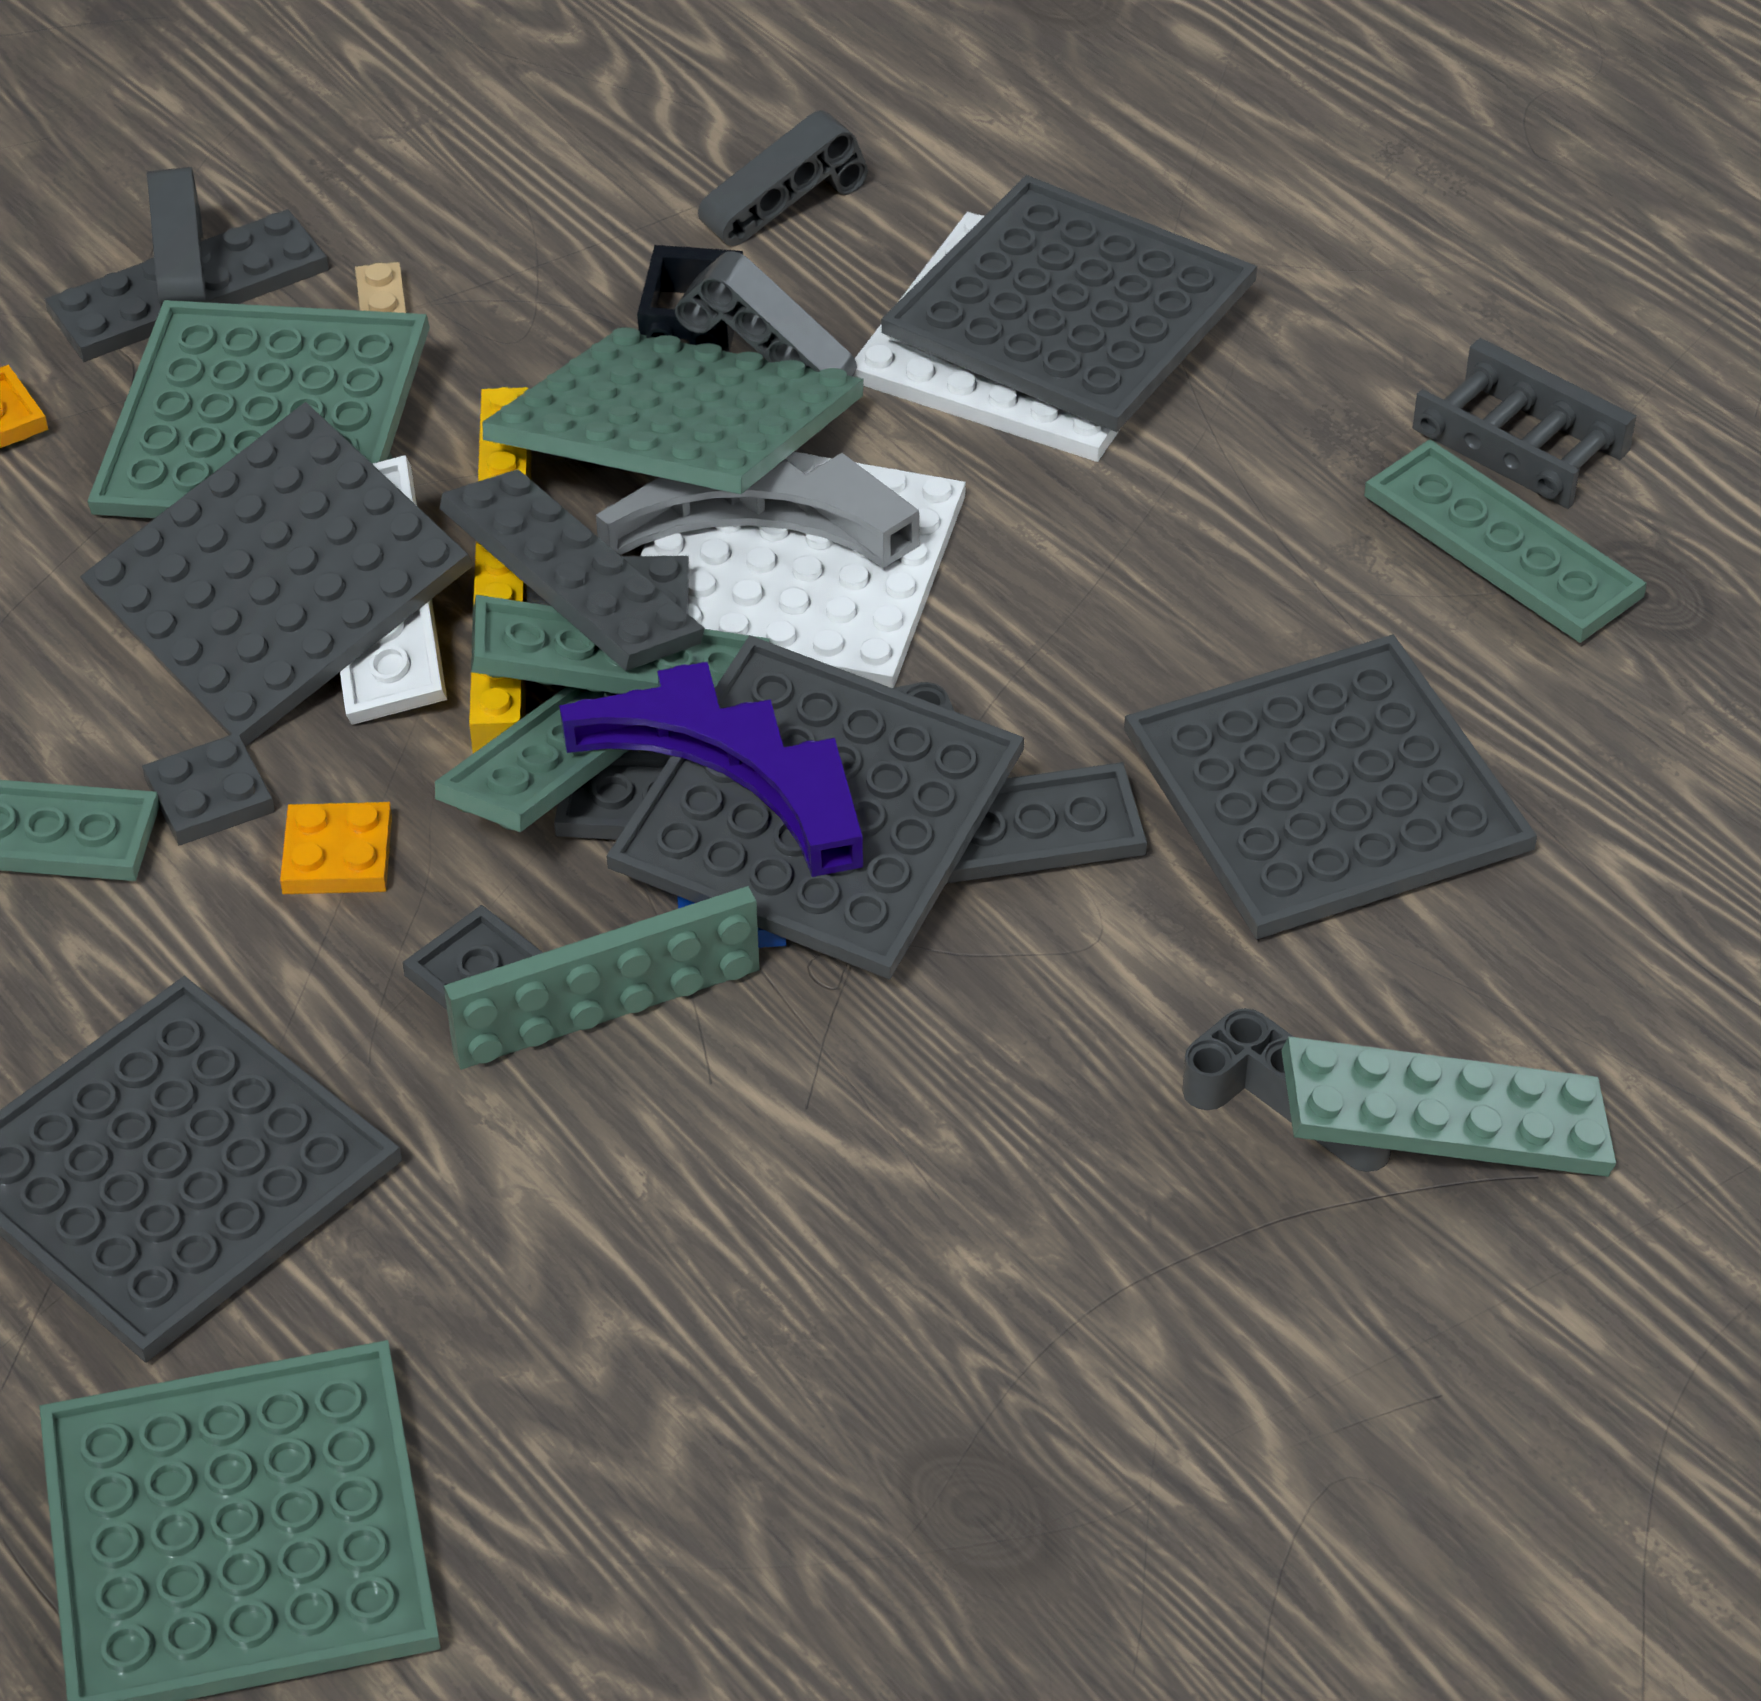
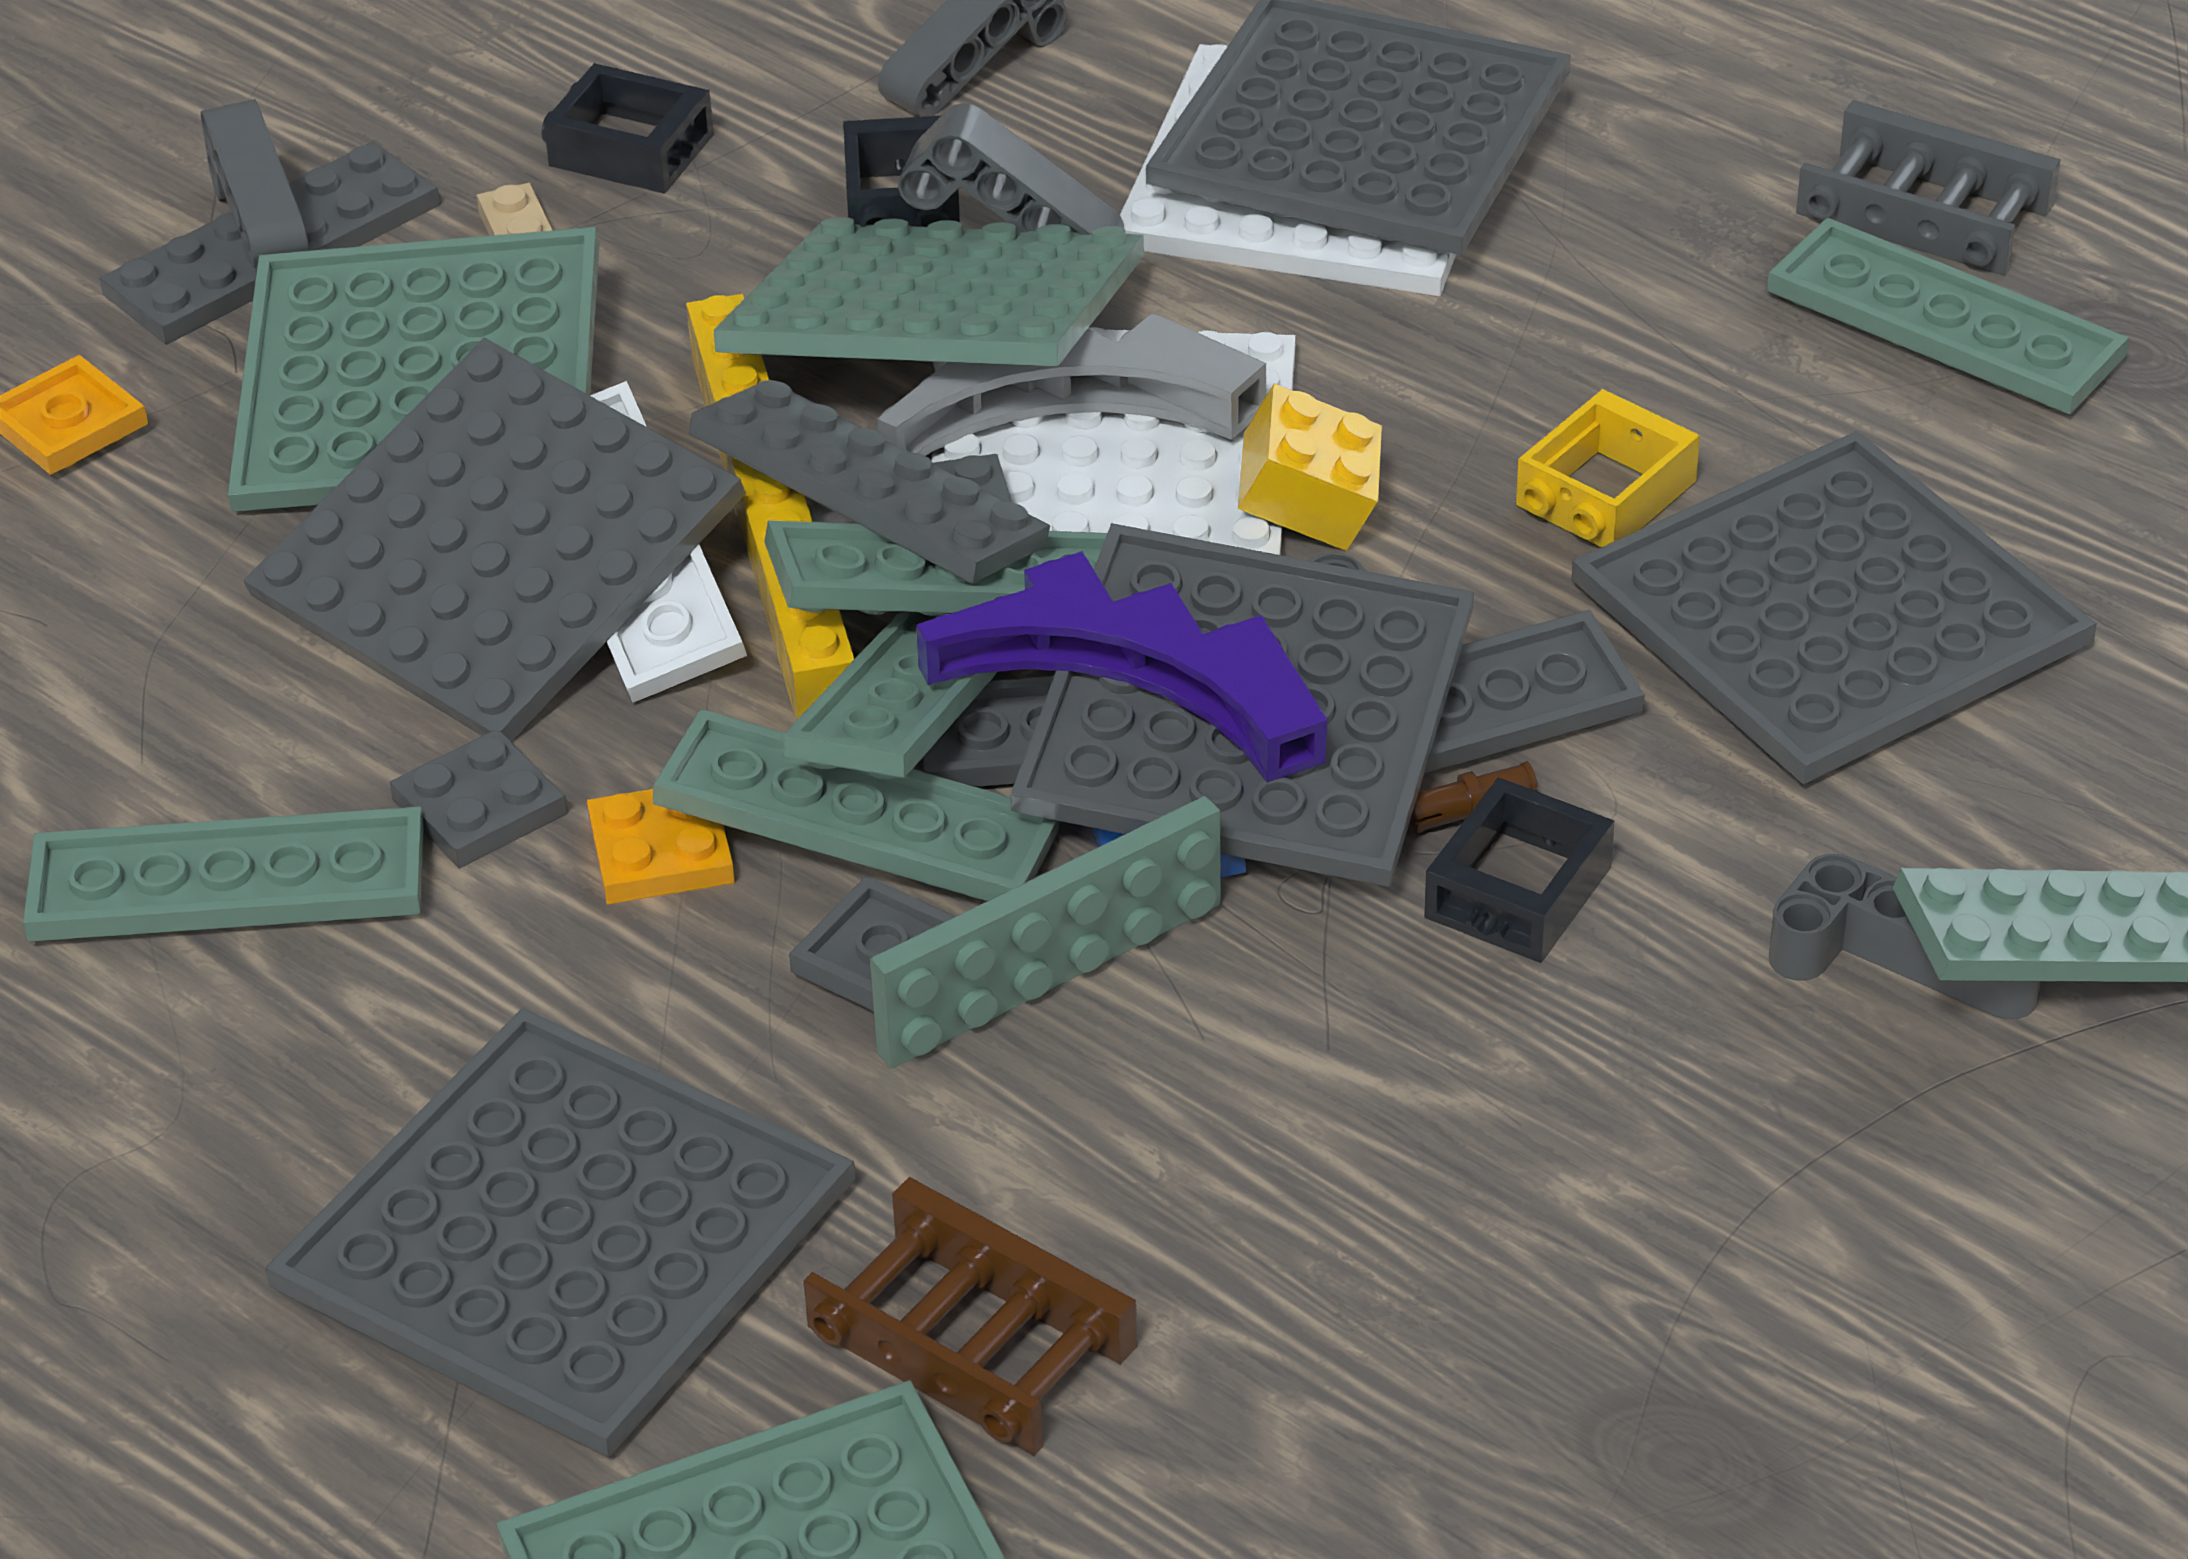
camera: 10 degrees left, 5 degrees down
(473, 1244) = (978, 1257): none -> reddish brown fence
(497, 257) = (650, 162): none -> black window
(532, 871) = (900, 825): none -> sand green plate
(934, 604) = (1310, 467): none -> yellow brick
(975, 1015) = (1525, 919): none -> black window
(983, 910) = (1458, 799): none -> reddish brown pin
(1203, 608) = (1607, 426): none -> yellow window

